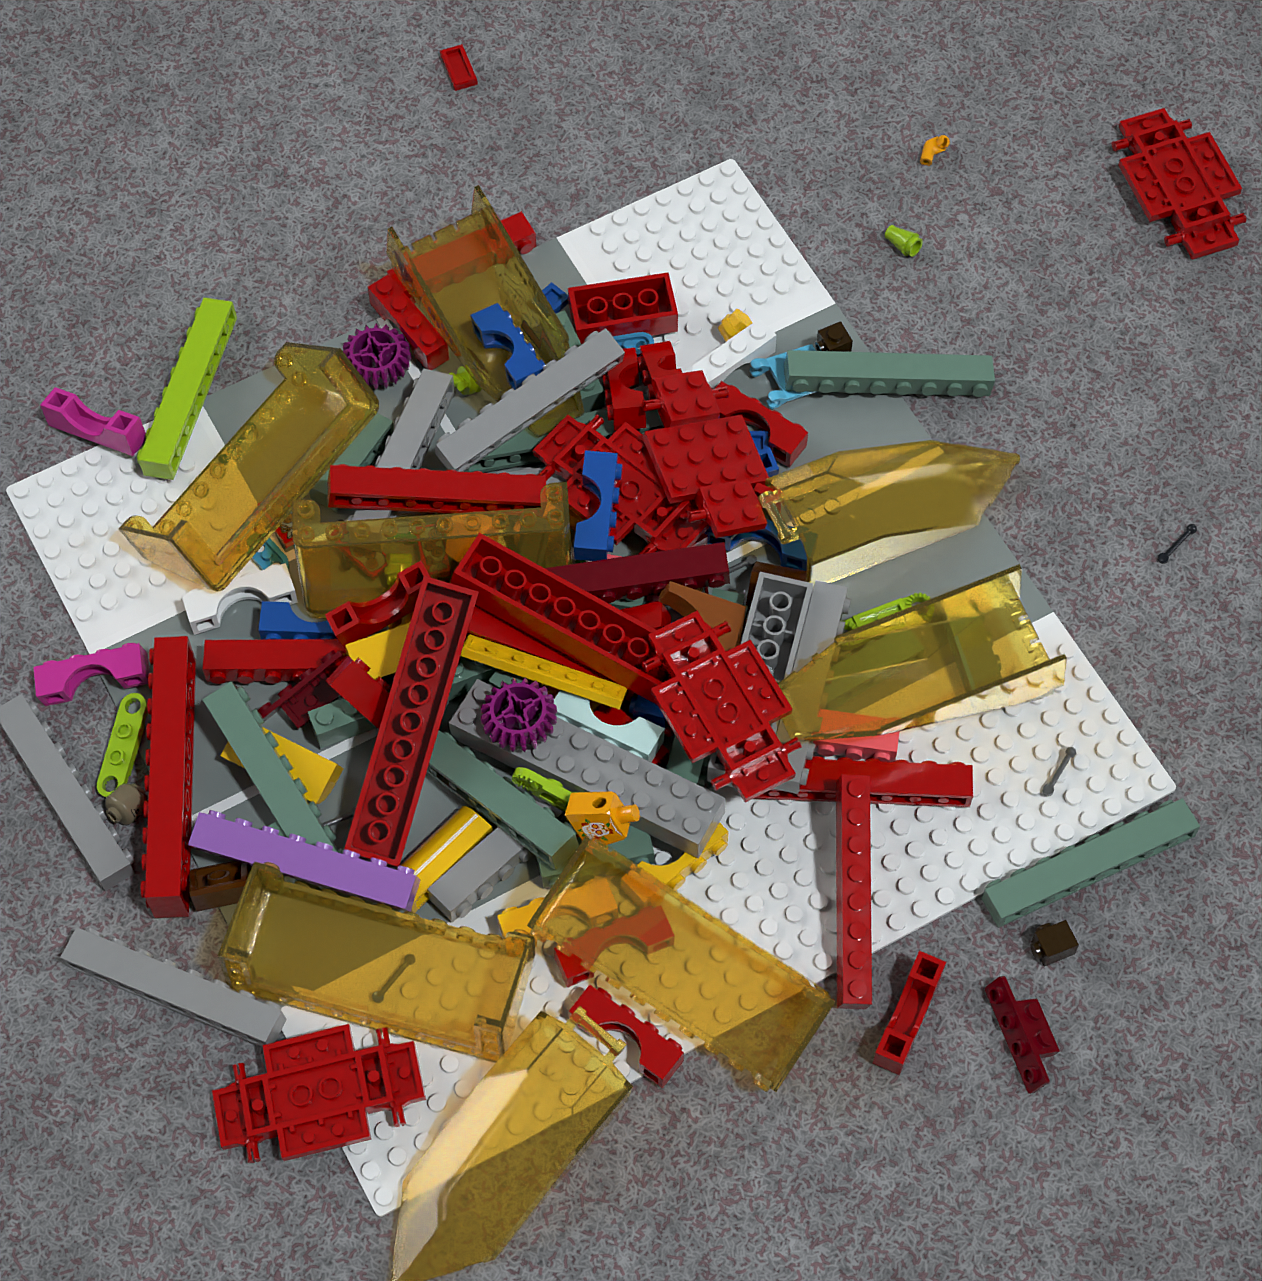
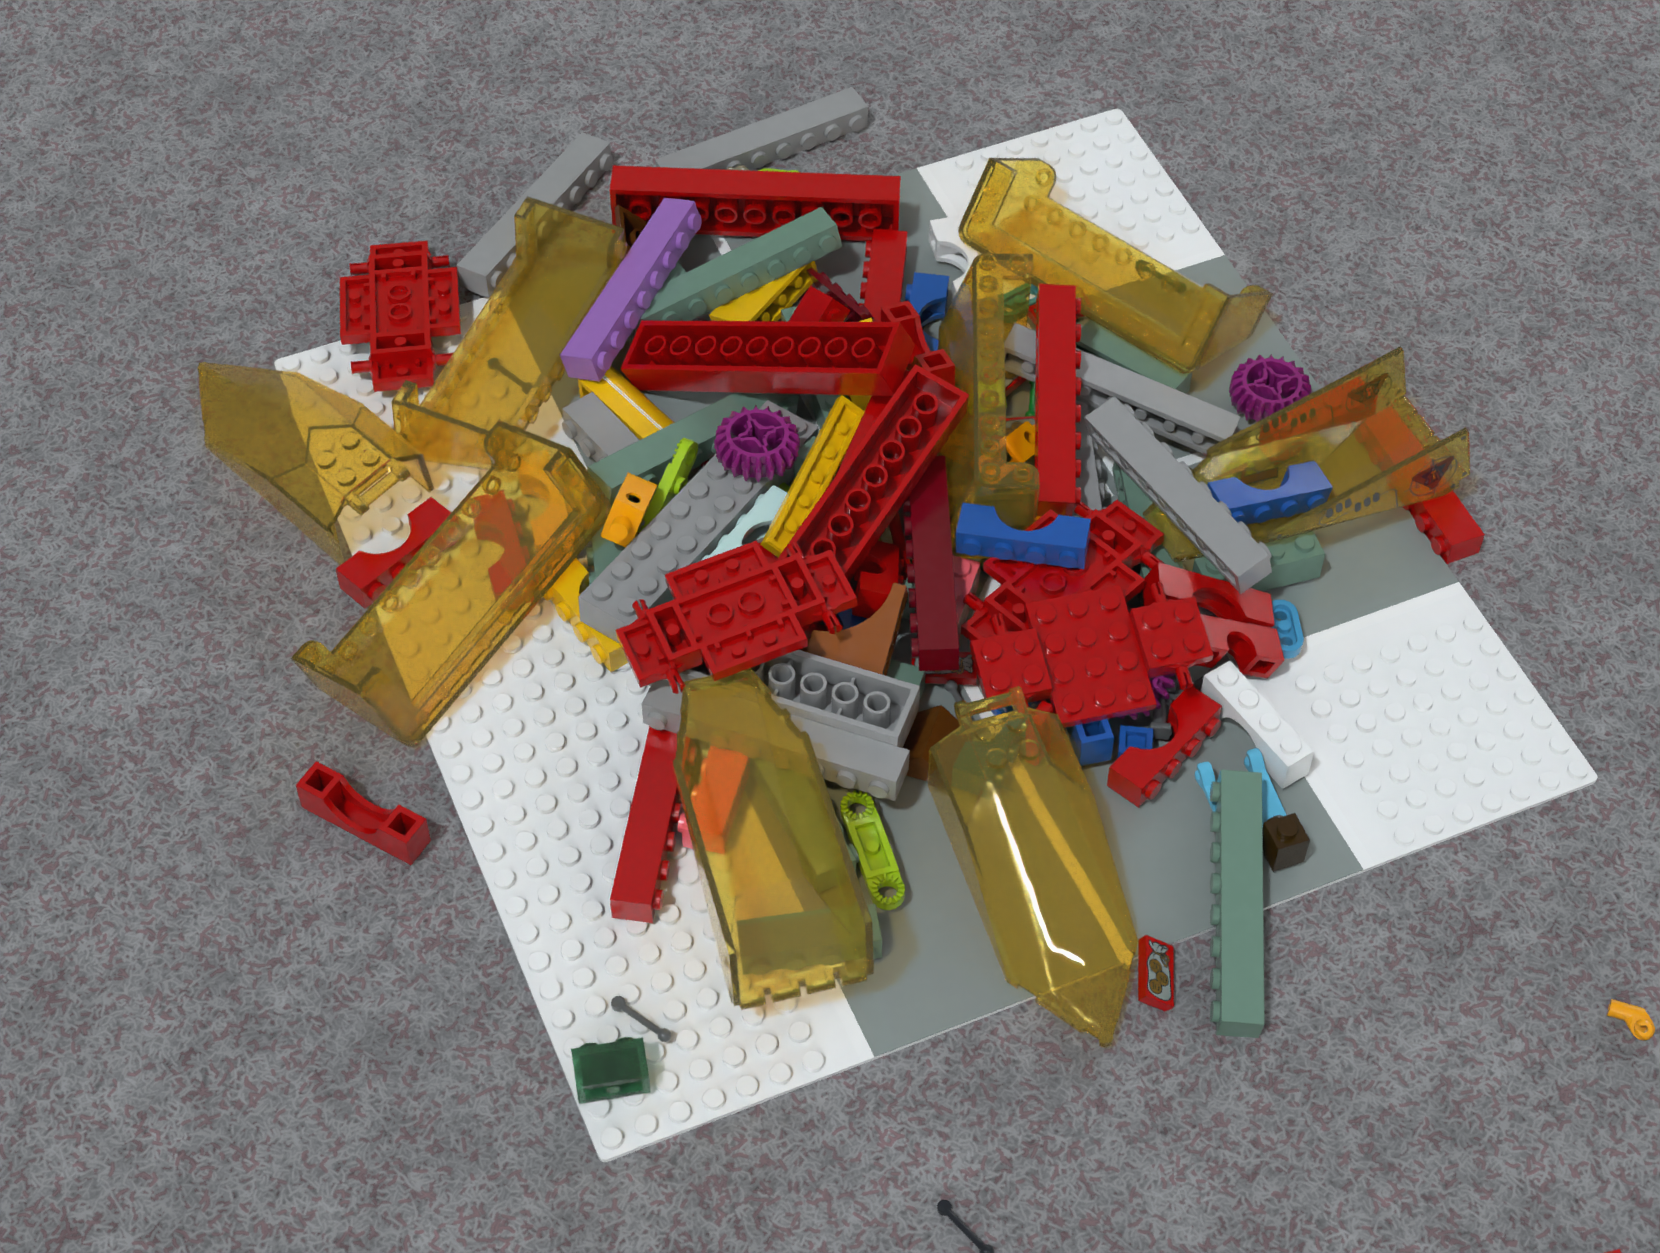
camera: 95 degrees right, 10 degrees down
(59, 679) = (887, 141): dark pink arch -> none
(68, 413) = (1175, 171): dark pink arch -> none
(187, 389) = (1232, 235): lime brick -> none
(556, 297) = (1353, 558): blue plate -> none
(624, 306) = (1334, 619): red brick -> none
(733, 324) = (1317, 736): yellow piece -> none
(853, 892) = (513, 763): red brick -> none
(905, 241) = (1464, 960): lime cone -> none
(952, 430) = (1155, 973): none -> tile
(1024, 1031) = (319, 938): dark red bracket -> none
(1053, 943) = (418, 978): dark brown brick -> none
(1090, 862) = (514, 1039): sand green brick -> none
(1113, 781) = (610, 1070): none -> clear green brick

